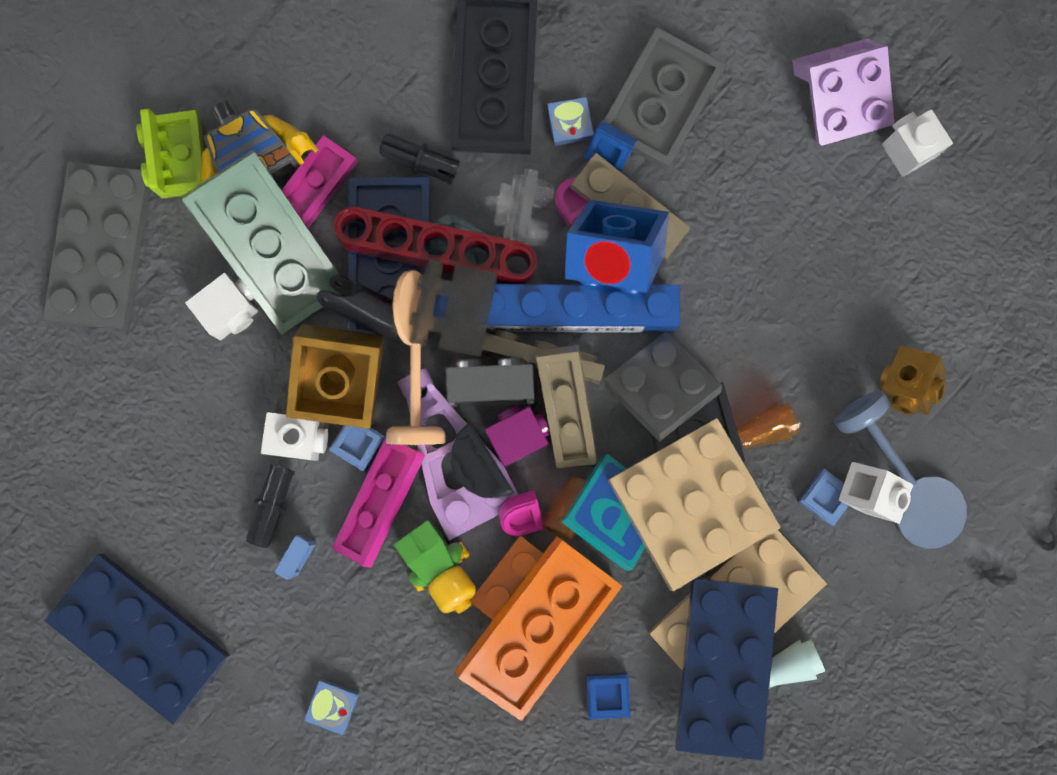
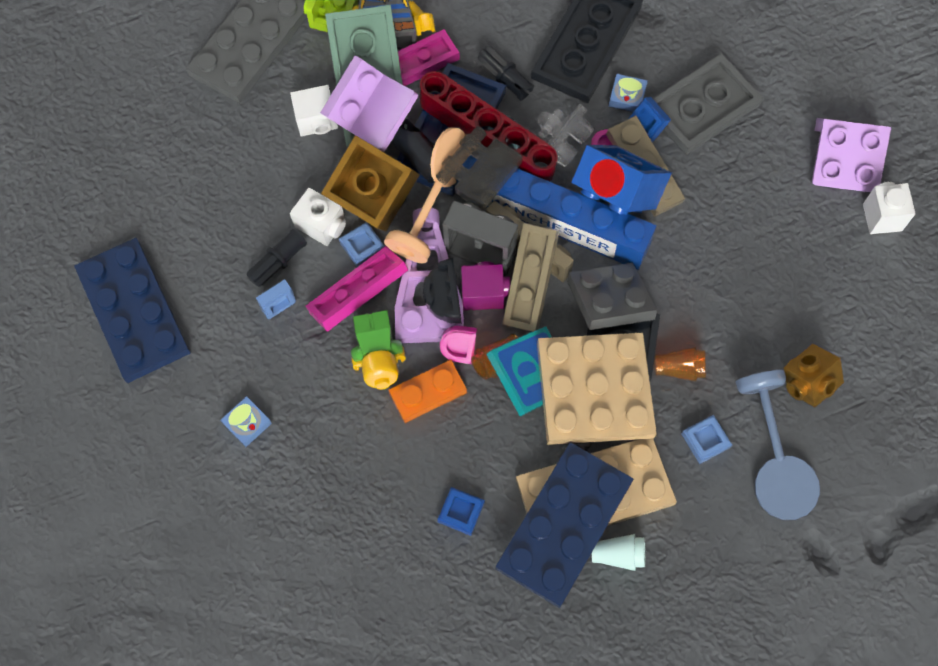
camera: 30 degrees right, 15 degrees down
(290, 285) = (369, 104): none -> lavender bracket
(538, 629) = (431, 429): orange plate -> none
(876, 492) = (746, 445): white brick -> none

